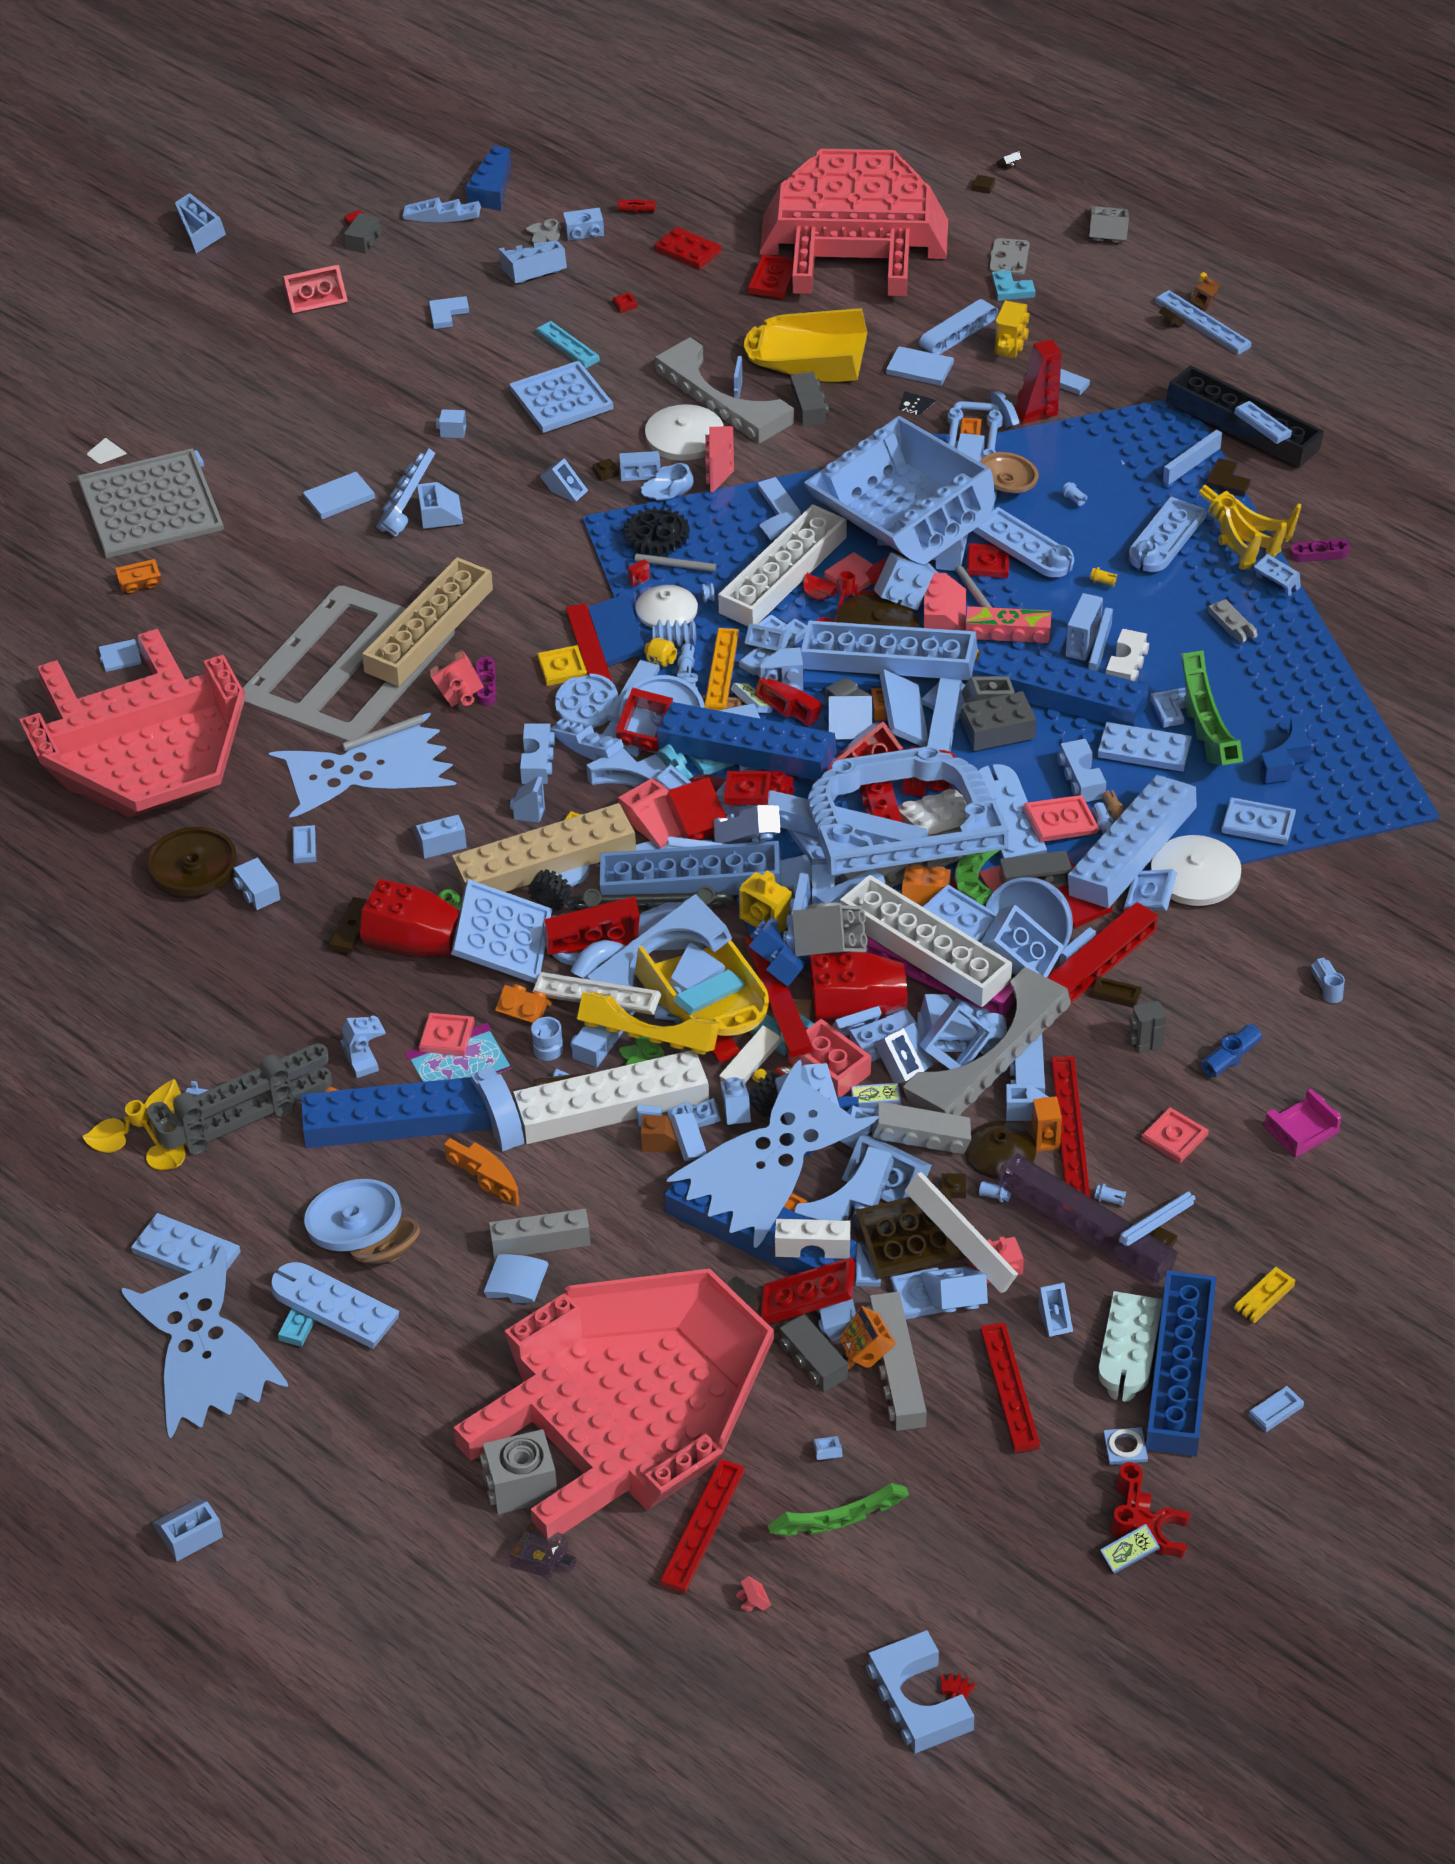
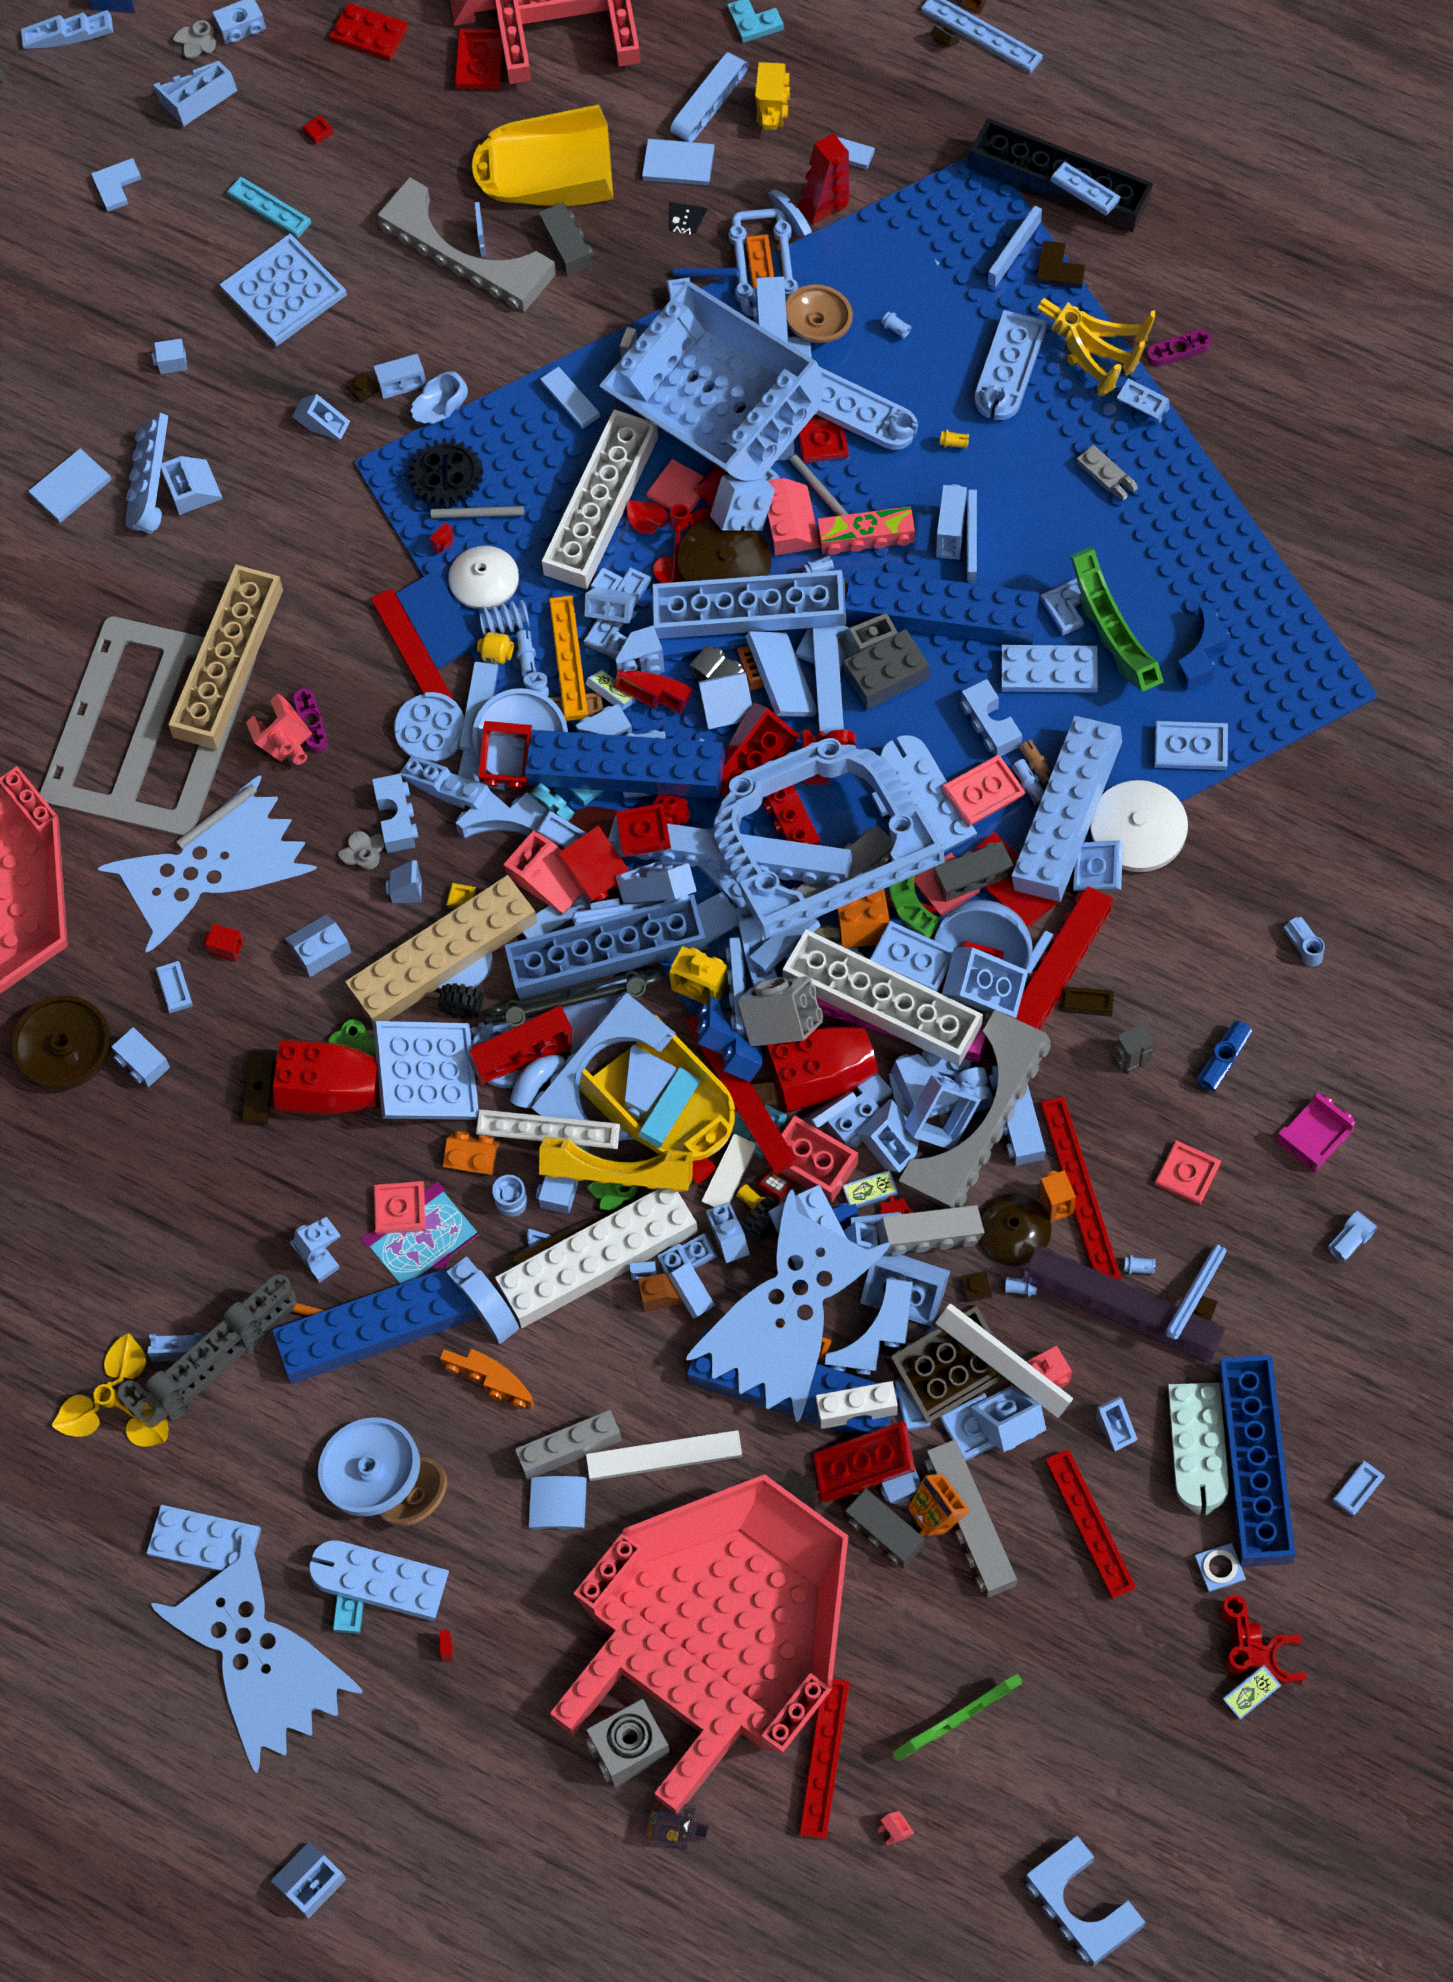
camera: 10 degrees left, 20 degrees up
(358, 818) = (223, 942): none -> red brick
(377, 1367) = (446, 1646): none -> red tile
(500, 776) = (362, 850): none -> light grey plate
(561, 665) = (388, 680): yellow tile -> none
(622, 1260) = (664, 1455): none -> white tile
(680, 431) = (436, 314): white dish -> none
(708, 592) = (525, 550): light blue bush -> none
(719, 455) = (489, 350): coral slope -> none
(778, 524) = (582, 434): light blue slope -> none
(827, 1448) = (925, 1638): light blue tile -> none
(935, 812) = (849, 813): white plate -> none
(955, 1687) = (1115, 1884): red piece -> none
(1020, 1101) = (1027, 1170): light blue slope -> none
(1129, 655) = (1006, 536): white arch -> none
(1265, 1294) = (1321, 1354): yellow hinge -> none
(1322, 1205) = (1356, 1231): none -> light blue piece

